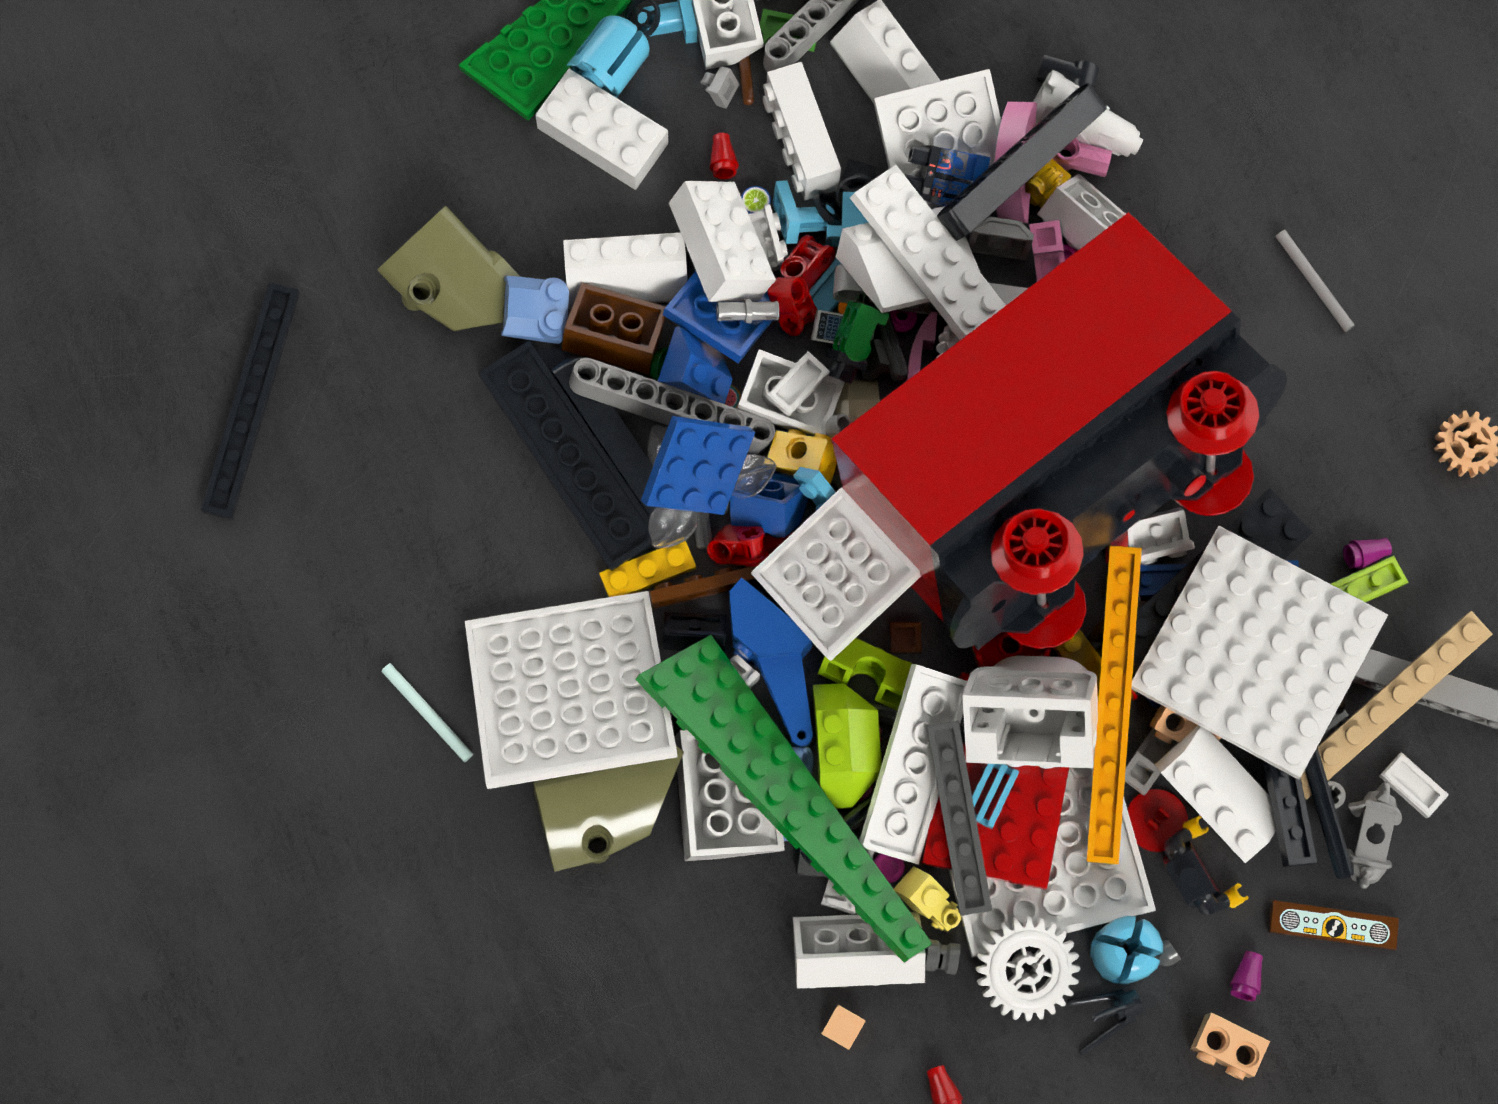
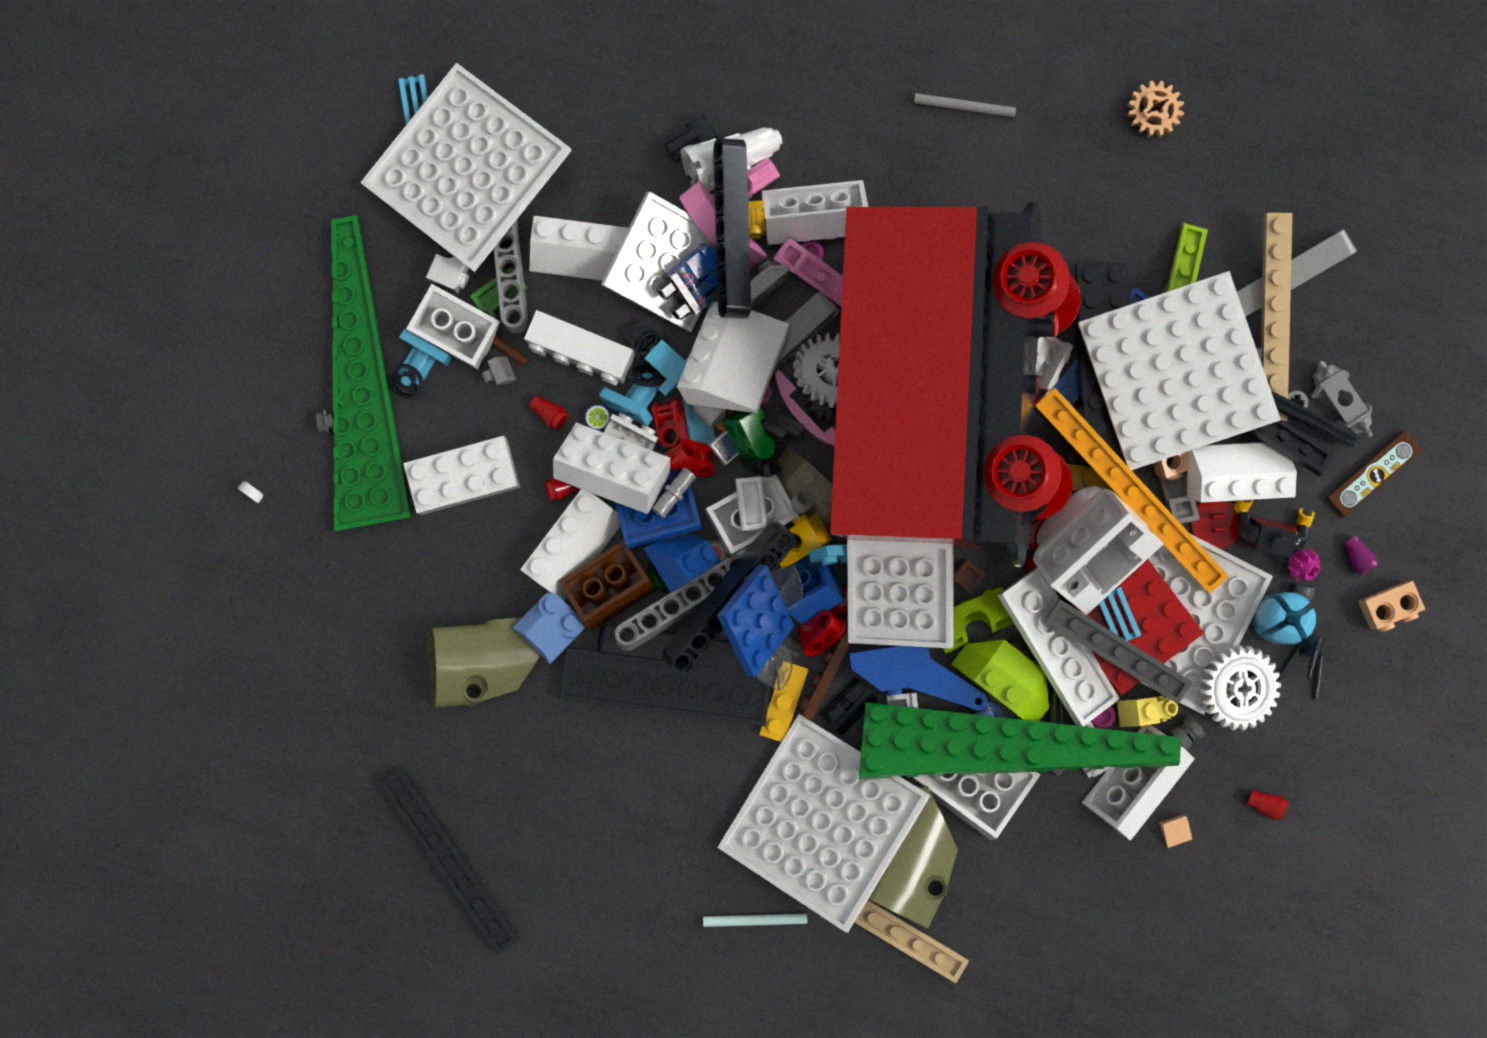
camera: 45 degrees left, 10 degrees up
(528, 862) = (912, 941): none -> tan plate
(611, 54) = (417, 427): medium azure cylinder -> none
(652, 440) = (700, 623): none -> black beam
(663, 219) = (558, 489): none -> red cone
(927, 251) = (741, 345): white plate -> none
(1192, 929) = (1304, 565): none -> dark pink gear
(1365, 552) = (1166, 239): magenta cone -> none
(1414, 785) = (1333, 344): white tile -> none

